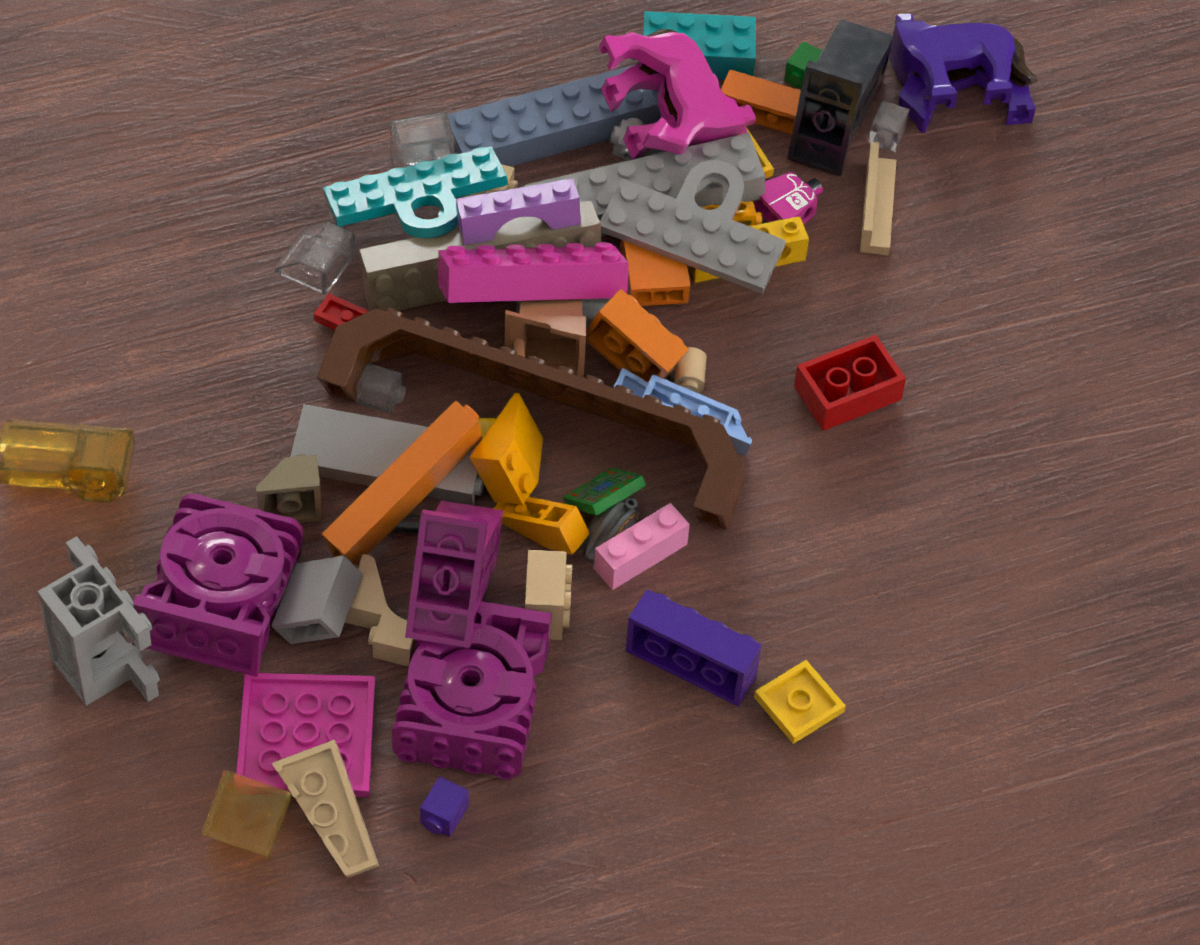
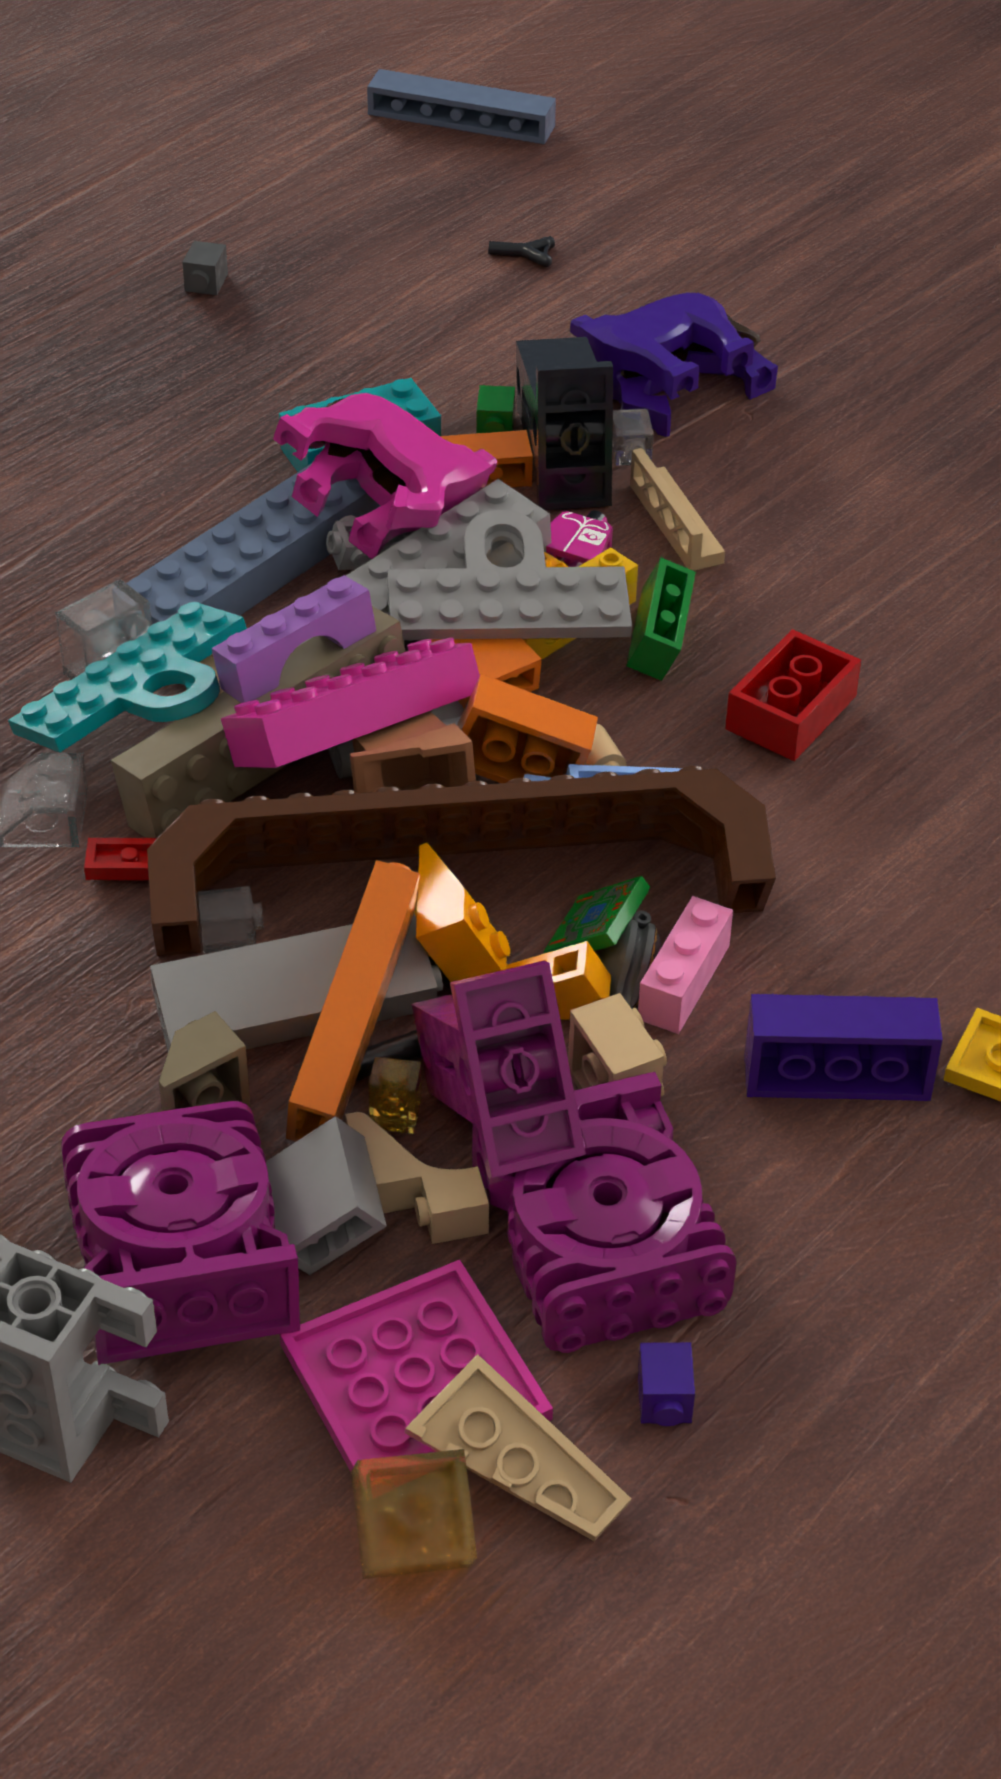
camera: 25 degrees left, 10 degrees down
(401, 553) = (395, 1094): none -> clear yellow brick
(801, 285) = (661, 619): none -> green brick

